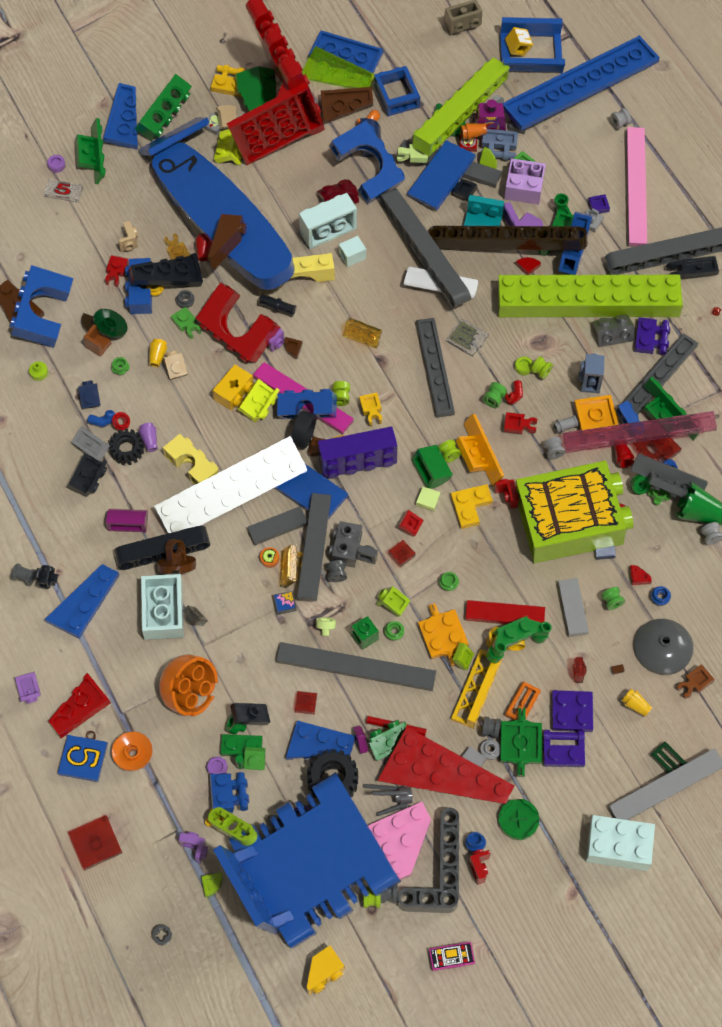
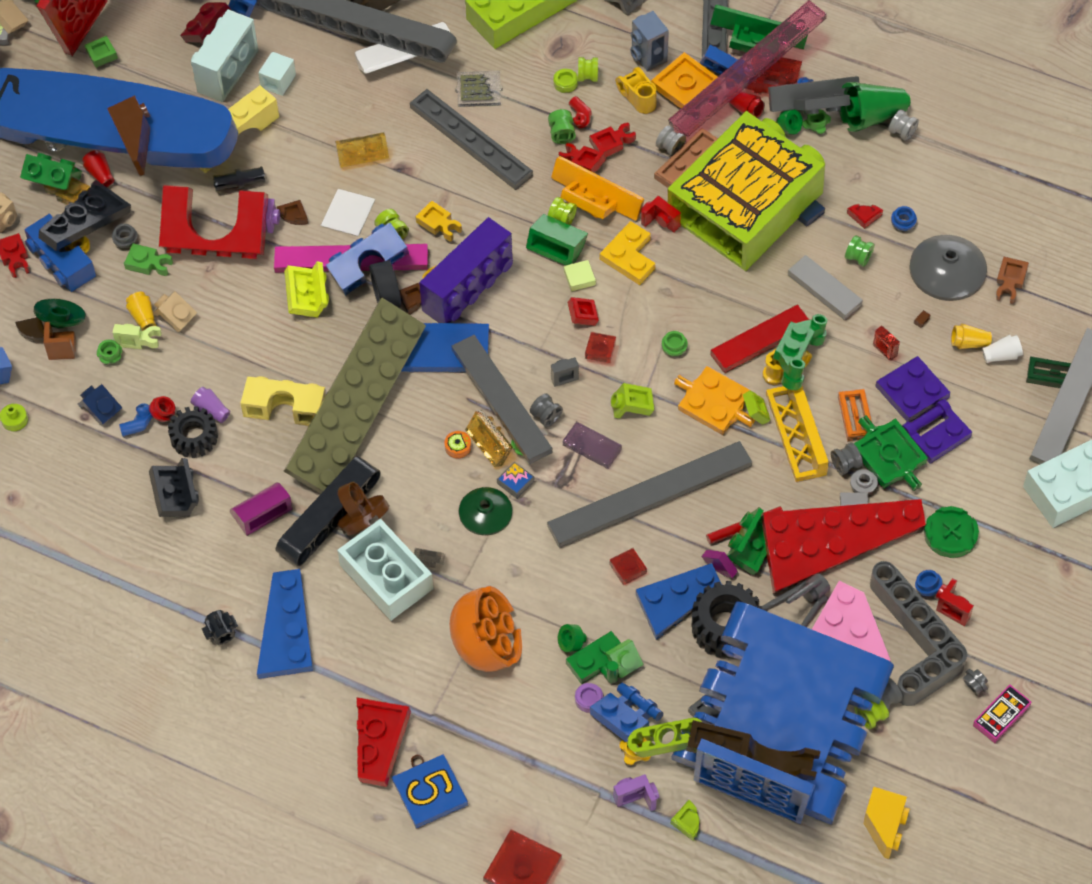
camera: 35 degrees left, 5 degrees down
(23, 574) = (189, 642): dark grey bush -> none
(28, 687) = (302, 758): medium lavender bracket -> none
(90, 443) = (148, 453): light grey plate -> none
(132, 742) = (481, 732): orange dish -> none
(139, 366) = (132, 337): none -> yellowish green plate
(172, 231) = (49, 172): none -> green bracket
(227, 149) = (37, 45): neon yellow bracket -> none
(233, 387) = (264, 294): yellow brick -> none
(250, 714) = (581, 615): black plate -> none
(253, 617) = (488, 520): none -> dark green dish
(262, 172) = (101, 51): none -> bright green plate
(266, 871) = (795, 763): none -> dark brown piece
(277, 525) = (438, 406): dark grey tile -> none
(325, 367) = (348, 212): none -> white sticker
(325, 624) = (582, 471): yellowish green tile -> none
(346, 610) = (592, 445): none -> clear purple tile
(347, 541) = (532, 373): flat silver brick -> none
(364, 632) = (632, 451): green brick -> none
(394, 625) = (659, 424): bright green plate -> none
(451, 924) = (975, 681): none -> dark grey plate
(491, 425) = (585, 157): none -> red plate
(556, 463) = (684, 157): none -> nougat tile
(562, 399) = (638, 90): none -> yellow piece
(565, 424) = (657, 116): light grey pin -> none
(651, 725) = (1005, 349): none -> white cone

